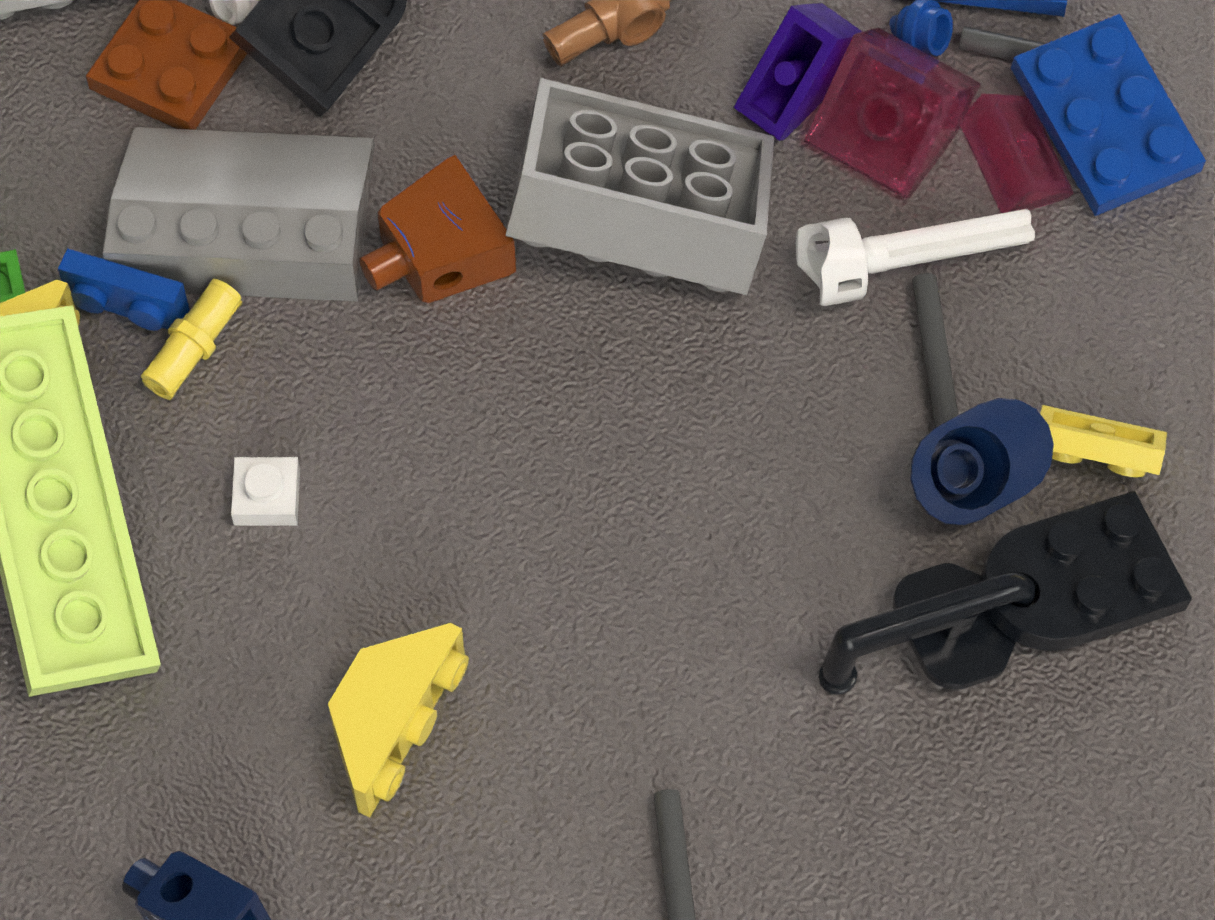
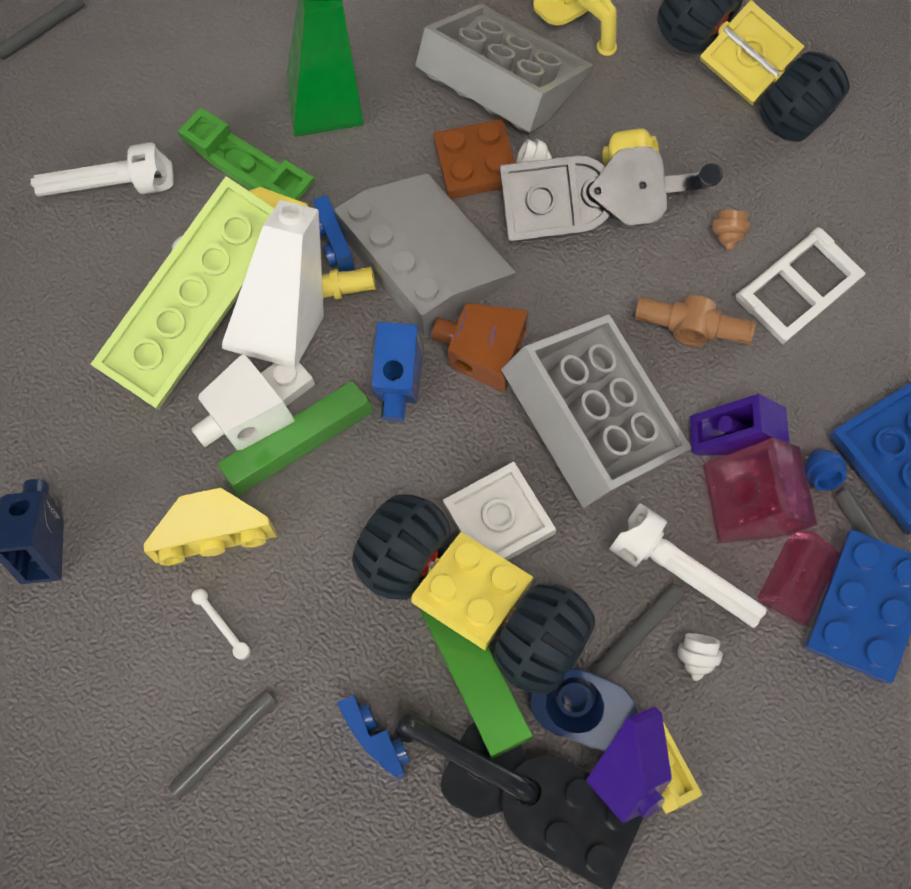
camera: 55 degrees right, 5 degrees up
(164, 387) = (281, 289): none -> white slope
(264, 558) = (241, 407): none -> white torso
(354, 535) = (307, 432): none -> bright green slope
(387, 346) = (396, 356): none -> blue torso
(577, 792) = (240, 649): none -> white hinge
(674, 389) = (500, 513): none -> white plate
(751, 463) = (473, 592): none -> black plate
(836, 543) = (481, 689): none -> bright green slope
(847, 711) = (381, 747): none -> blue slope
(1017, 314) = (699, 654): none -> white plate
(1090, 457) = (634, 767): none -> dark purple slope

